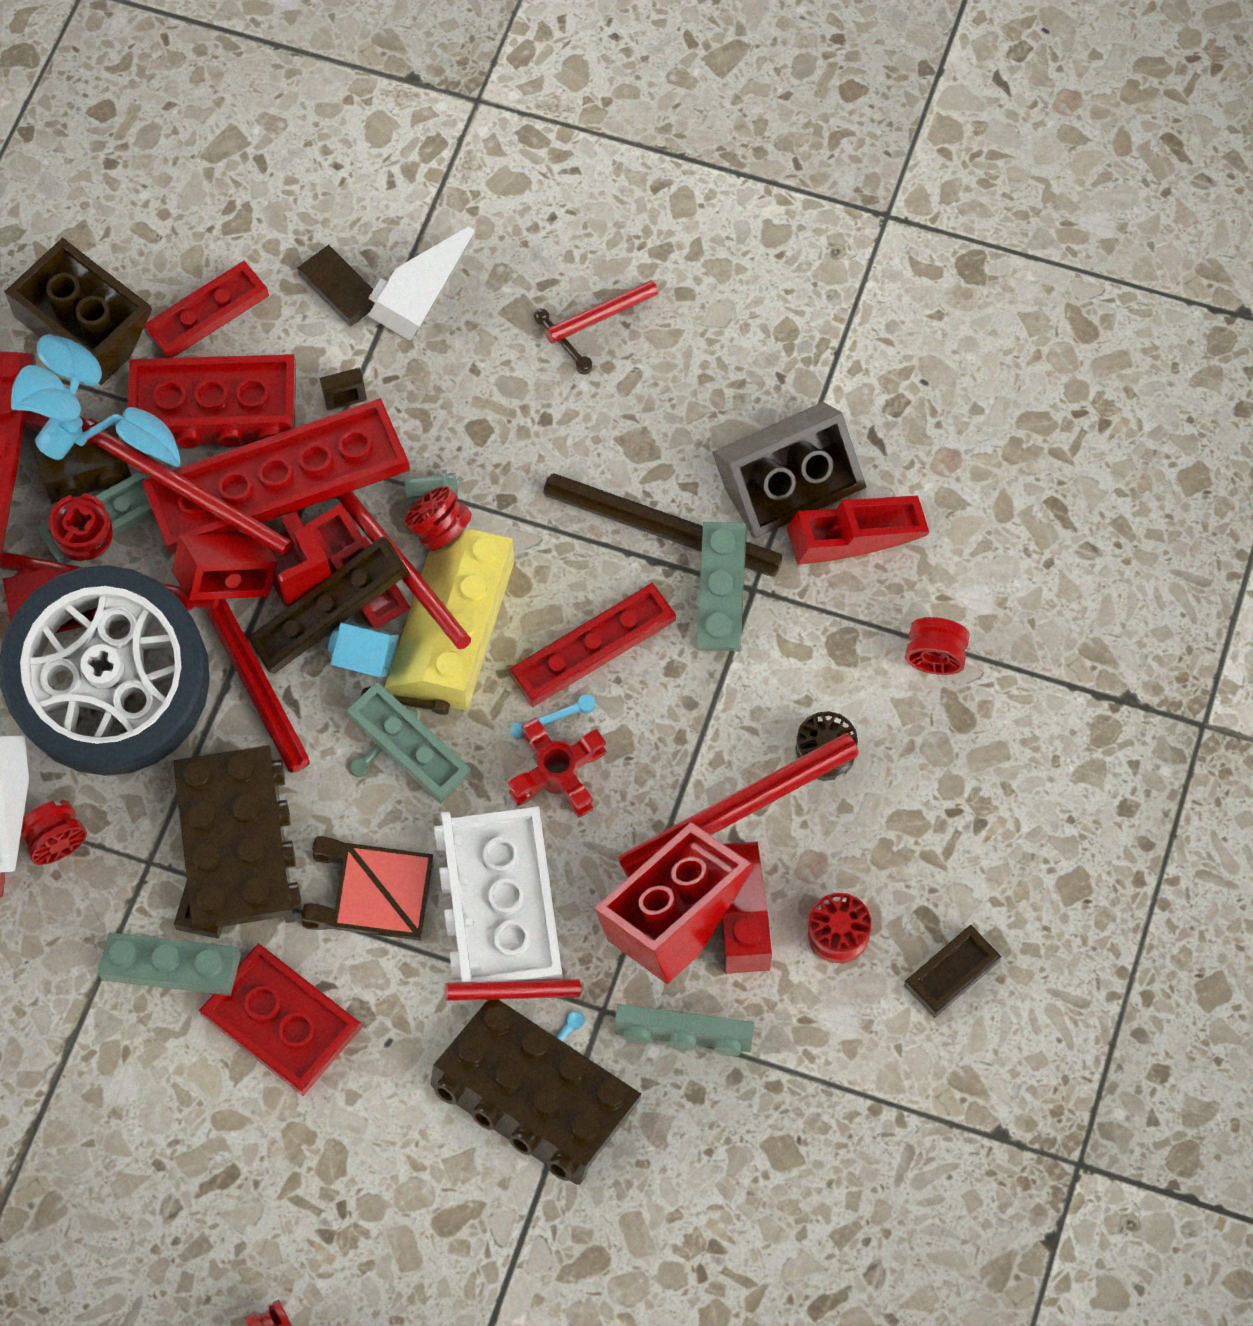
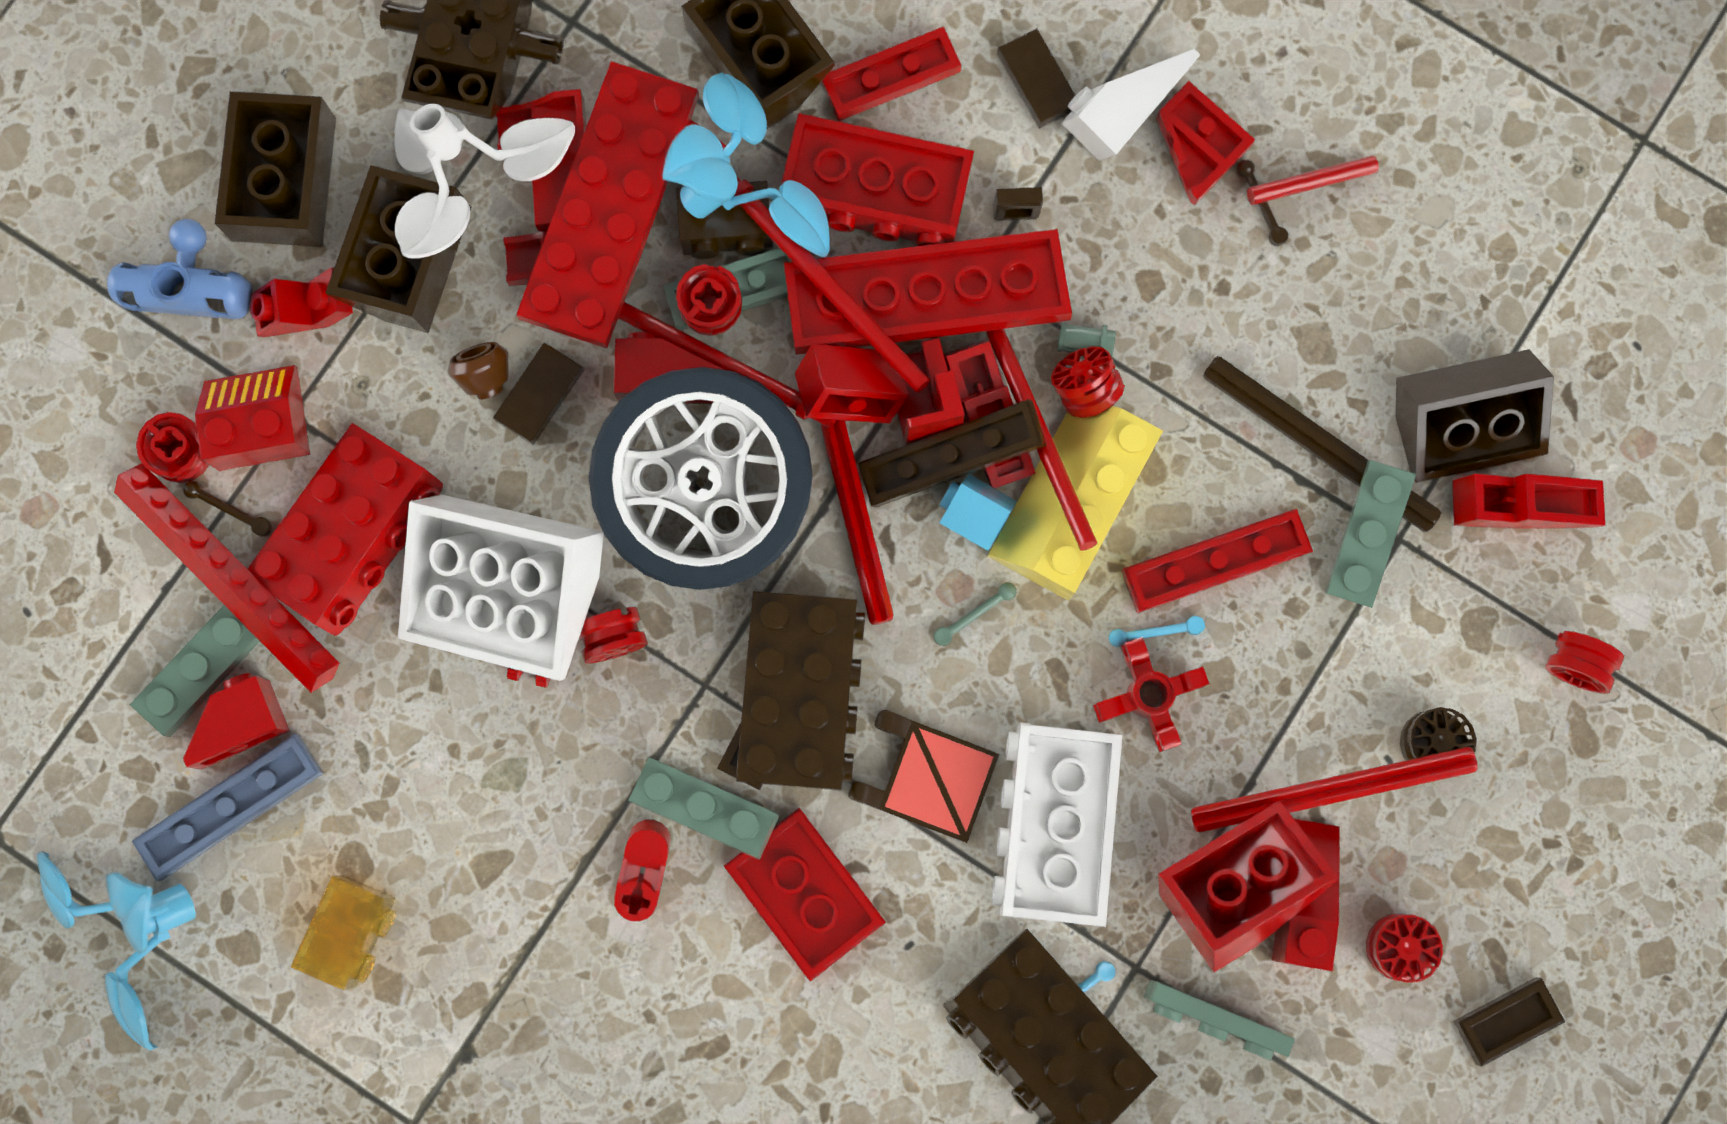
camera: 10 degrees right, 15 degrees up
(123, 1053) = (635, 891): none -> red piece
(408, 742) = (1001, 627): sand green plate -> none
(437, 706) = (971, 559): dark brown hinge -> none
(495, 301) = (1201, 140): none -> red wing
(512, 989) = (1050, 930): red bar -> none

